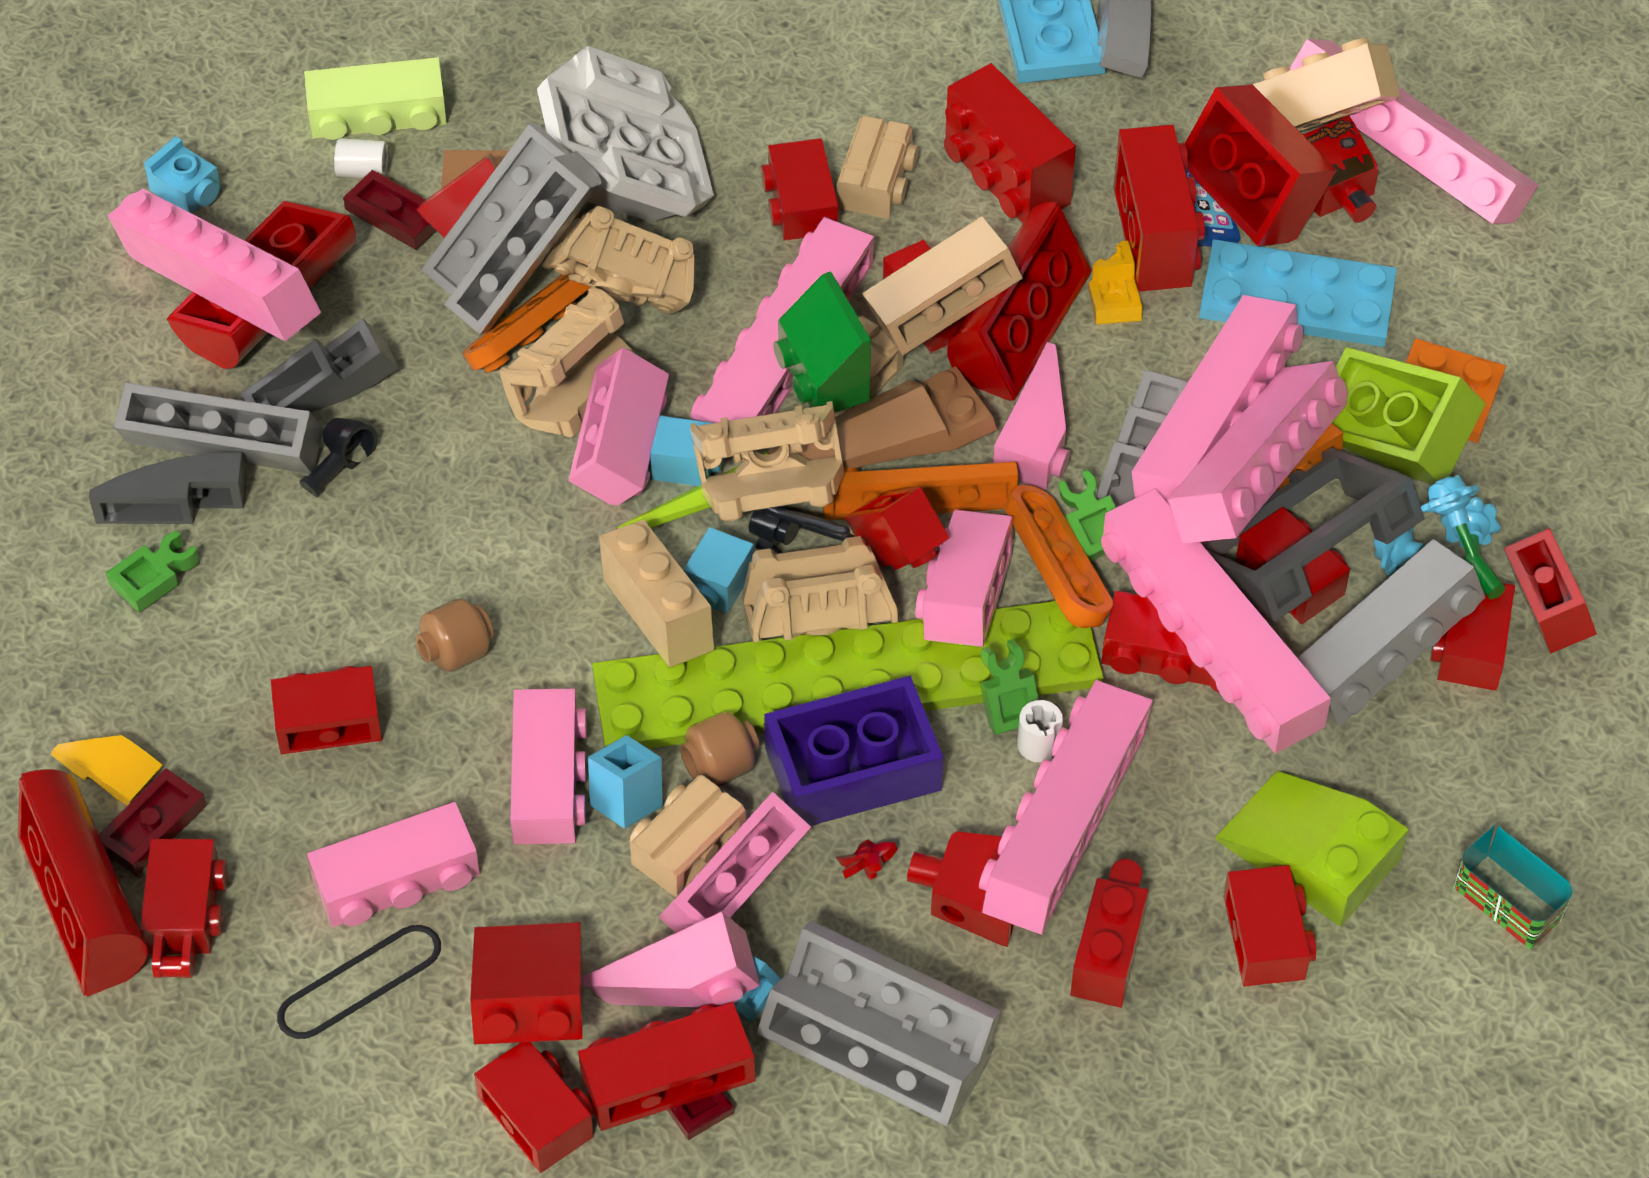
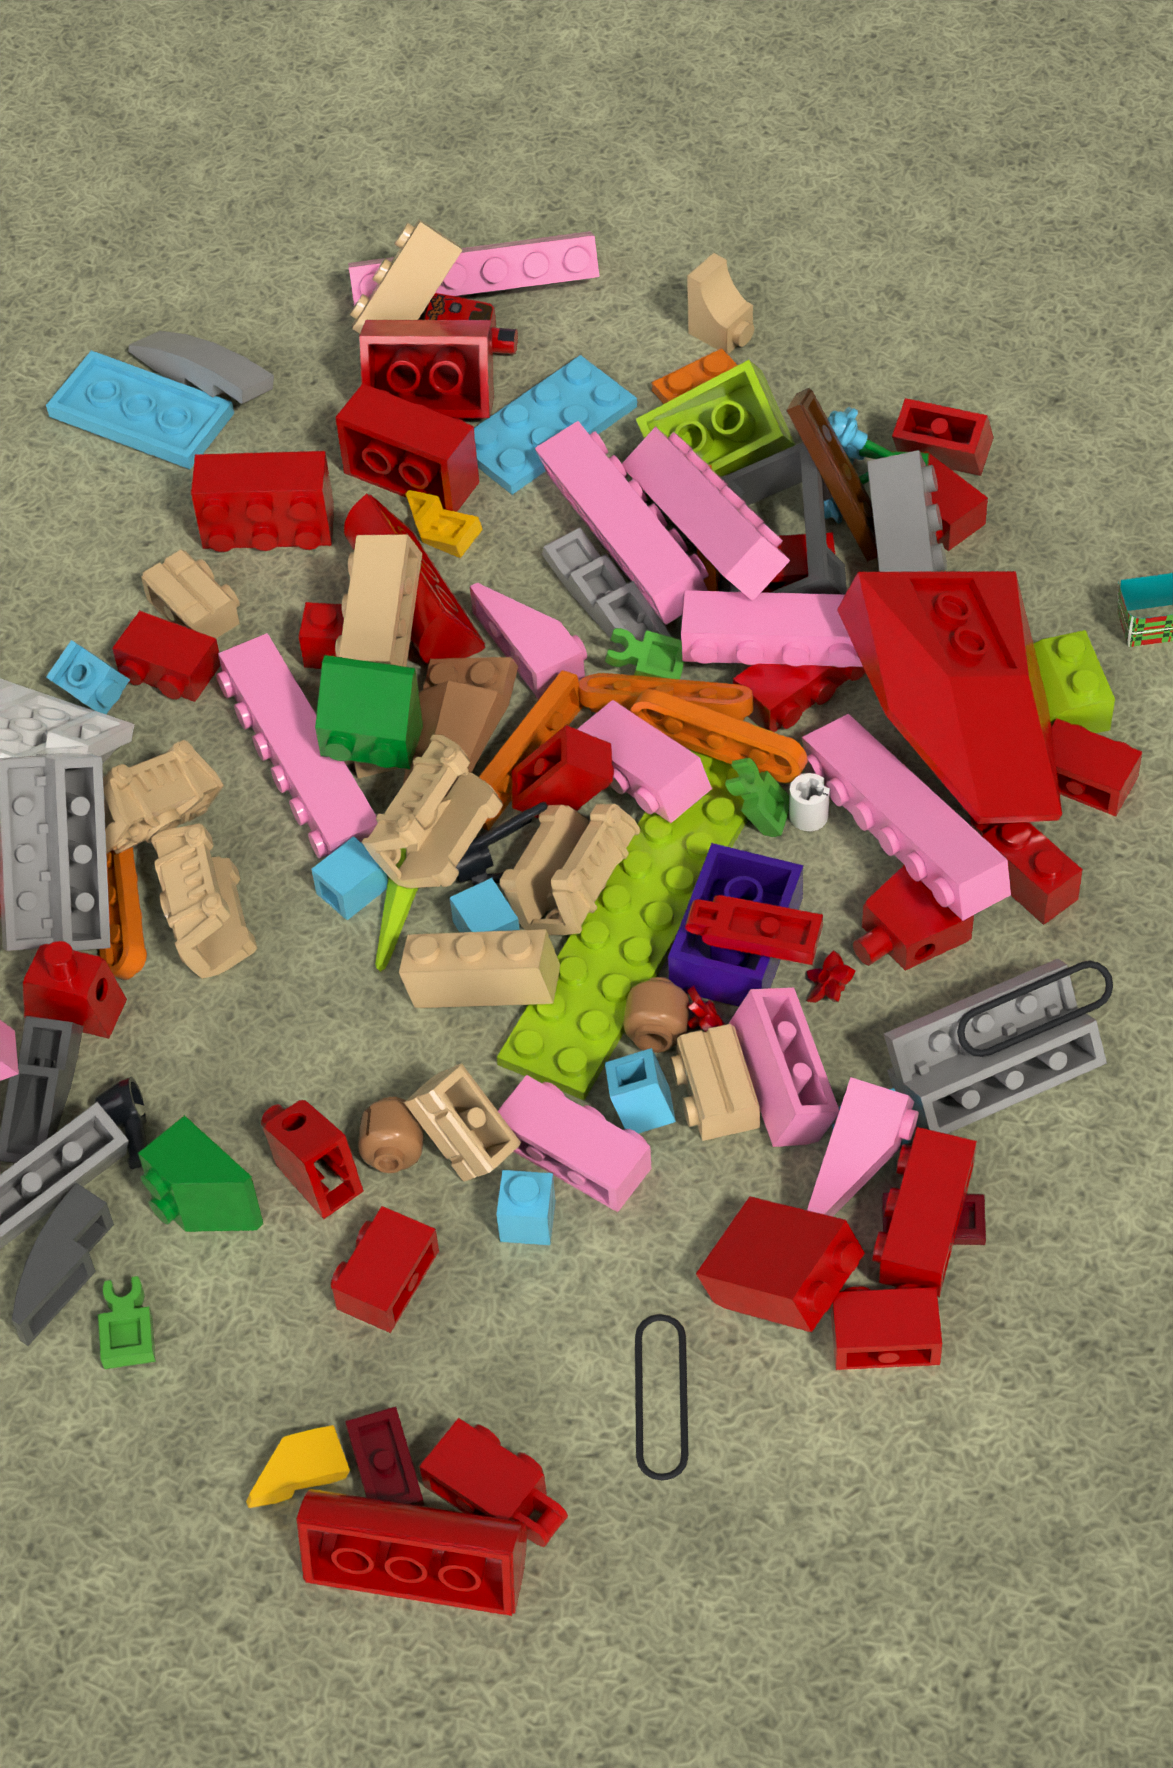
camera: 50 degrees left, 0 degrees up
(300, 525) = (198, 1182): none -> green slope
(393, 569) = (299, 1139): none -> red torso
(394, 865) = (581, 1304): bright pink brick -> none
(415, 319) = (73, 989): none -> red torso
(454, 769) = (526, 1207): none -> medium azure brick
(490, 671) = (462, 1122): none -> tan brick
(619, 427) = (292, 905): bright pink brick -> none
(732, 151) = (88, 678): none -> medium azure brick
(750, 786) = (706, 1014): none -> red plant
(836, 758) = (756, 928): none -> red hinge
(946, 1005) = (1044, 1027): none -> black piece
(1036, 604) = (721, 735): none -> orange plate
(1228, 761) = (960, 684): none -> red wedge
(1400, 503) = (835, 469): none -> reddish brown tile
(1538, 328) = (716, 308): none -> tan arch

